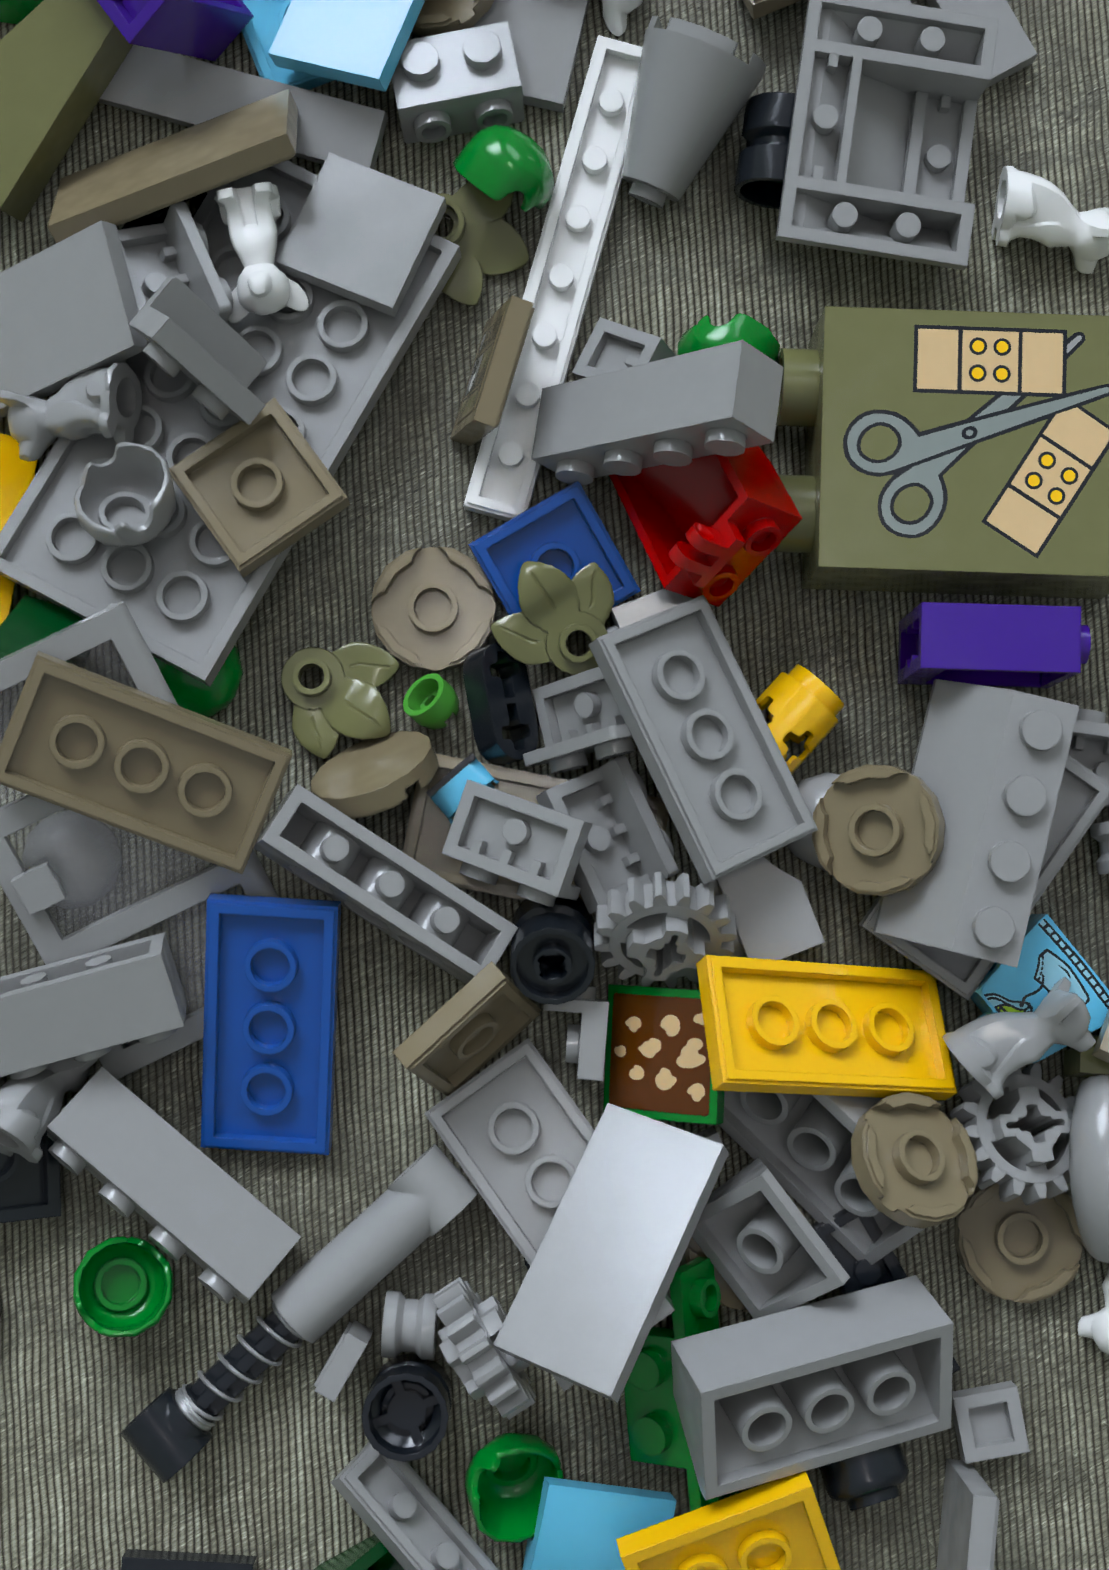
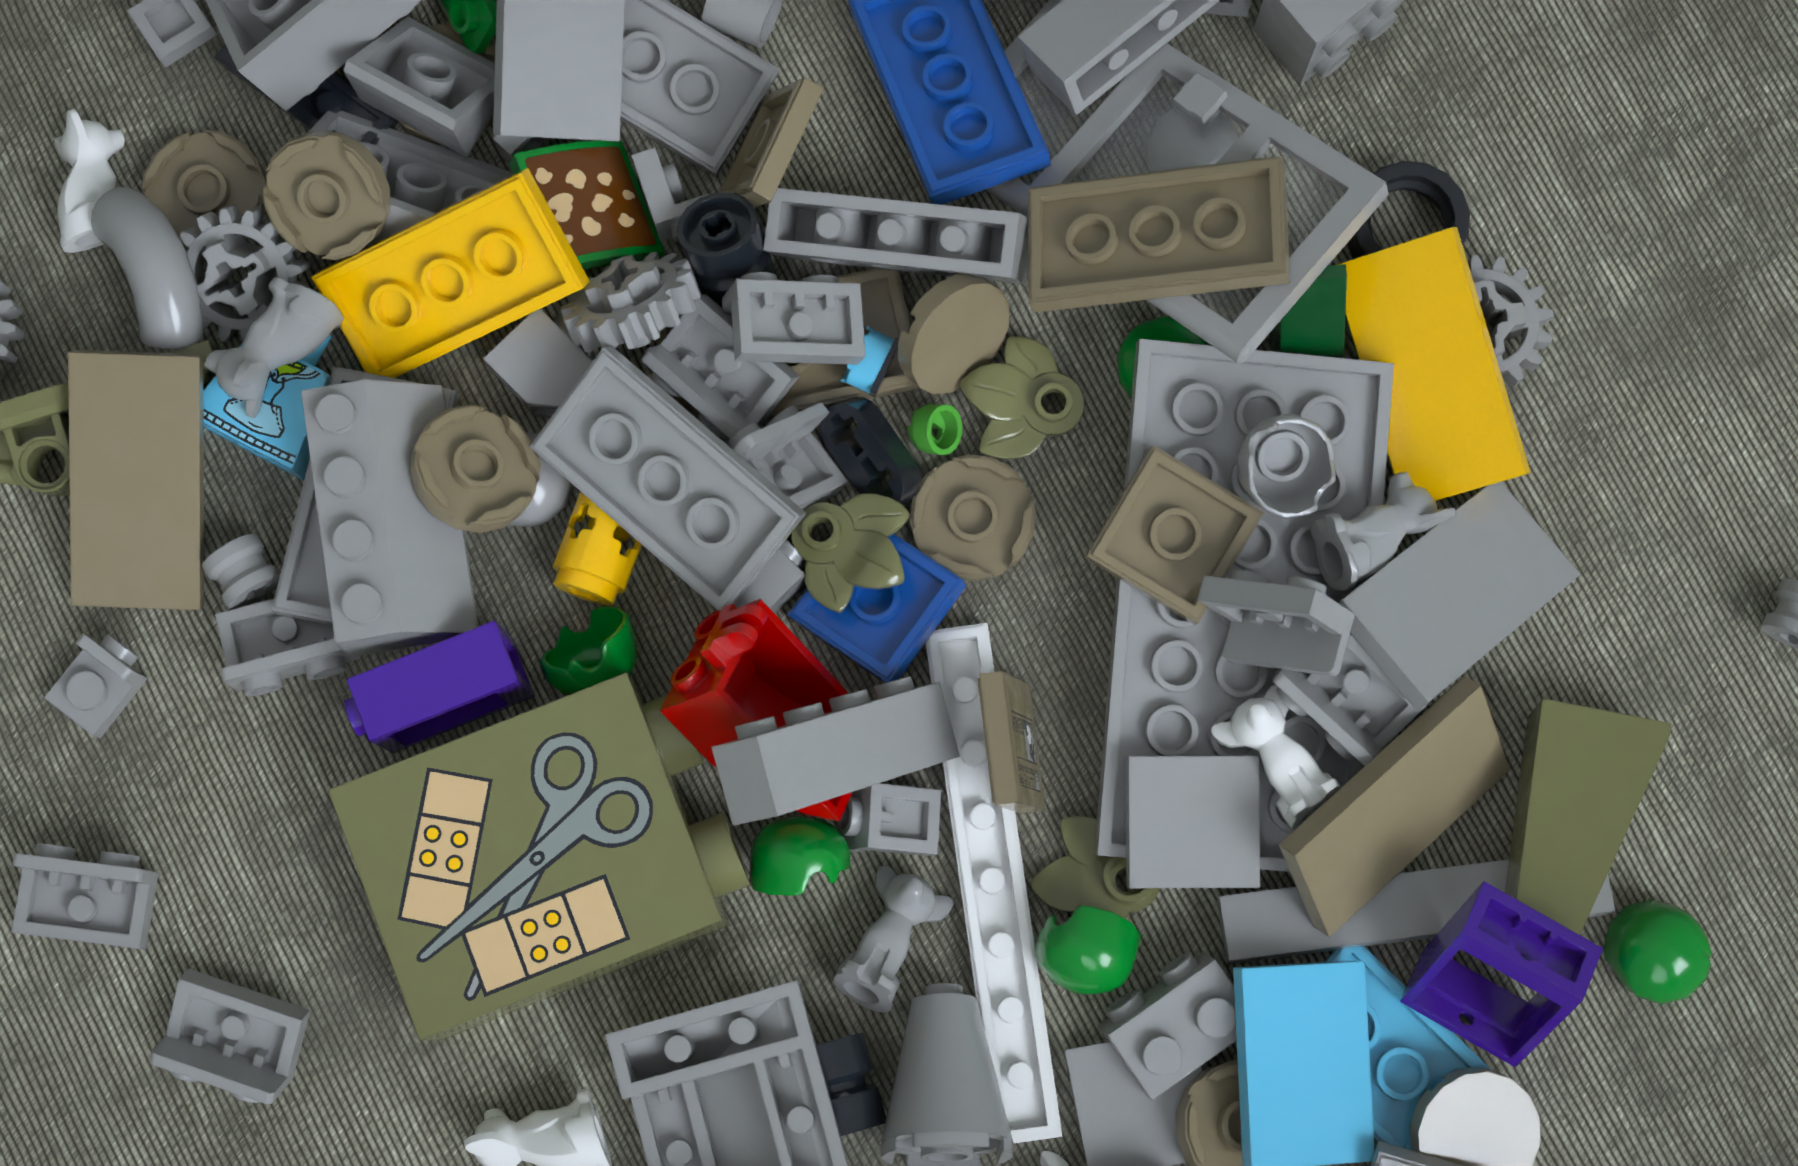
camera: 160 degrees right, 5 degrees down
(681, 254) = (870, 972): none -> light grey animal
(836, 624) = (592, 655): none -> green hair

